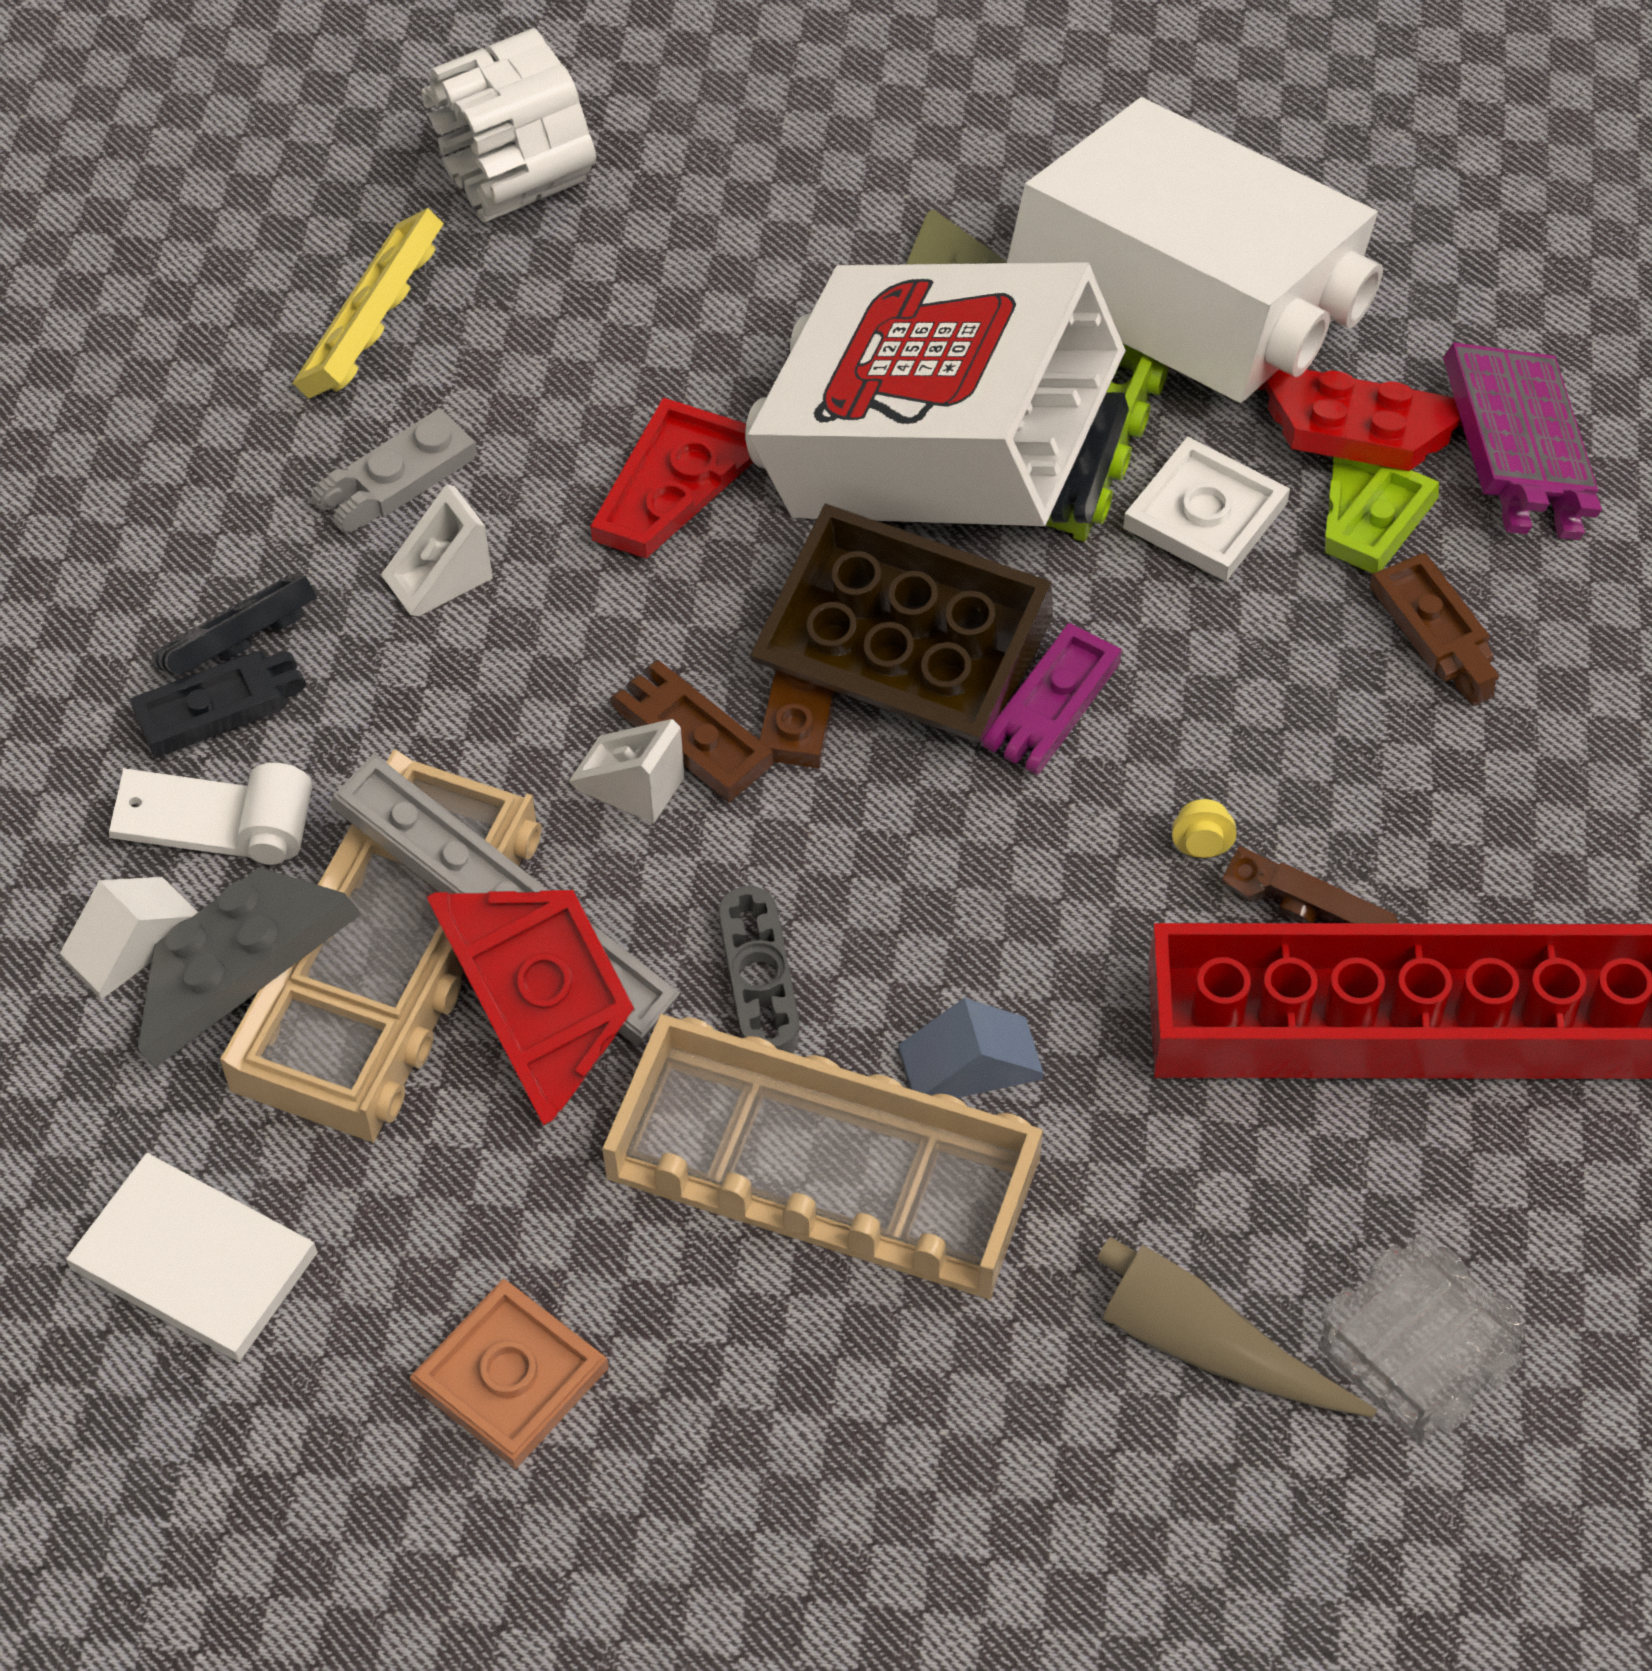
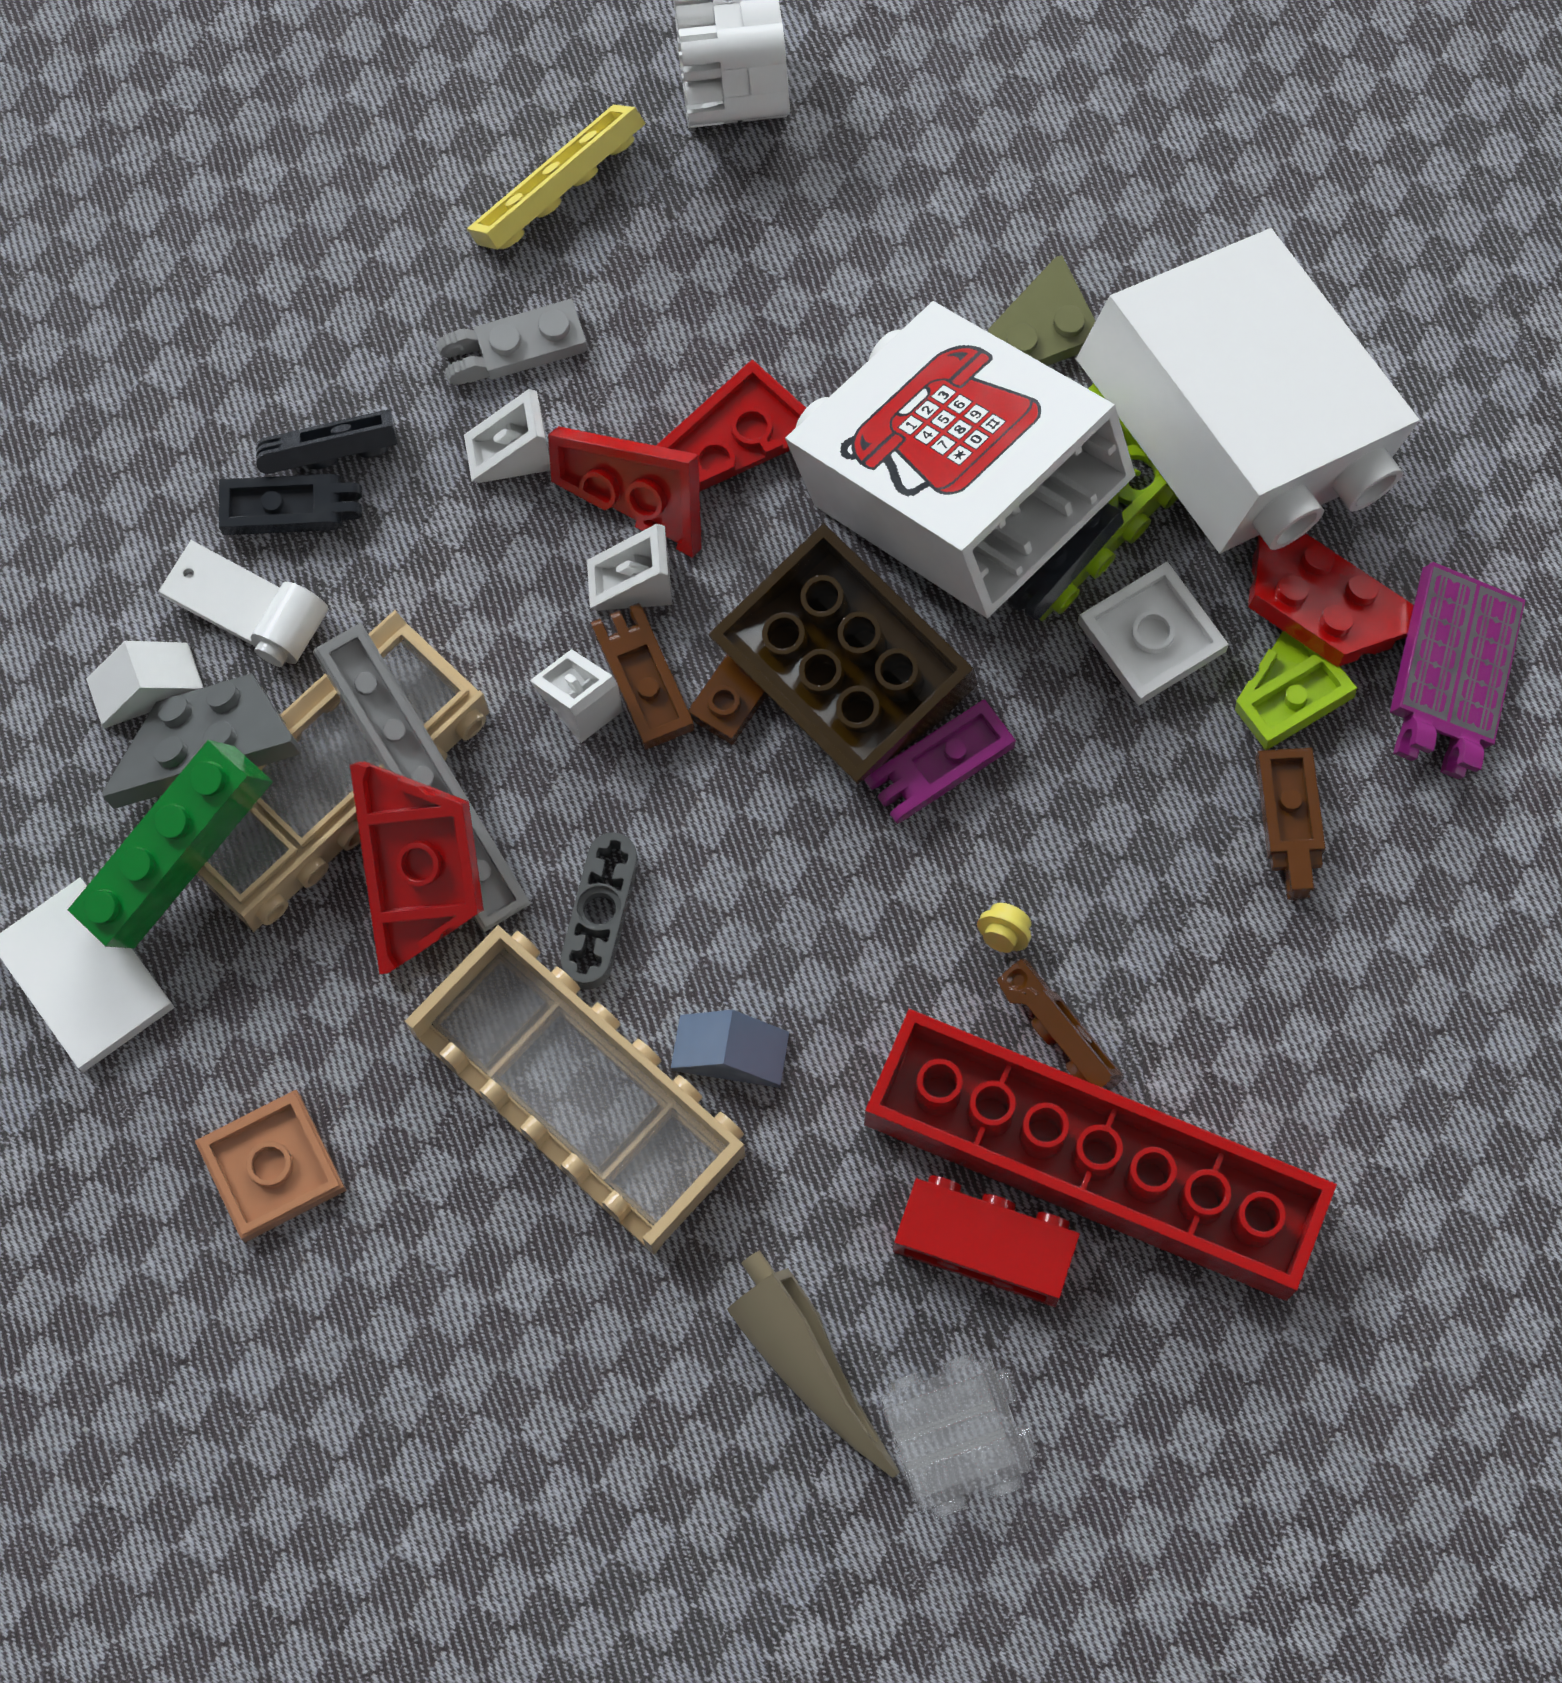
camera: 25 degrees right, 15 degrees up
(253, 1056) = (170, 845): none -> green brick
(595, 544) = (634, 478): none -> red wing
(635, 631) = (631, 572): none -> white slope
(1348, 1136) = (986, 1240): none -> red brick

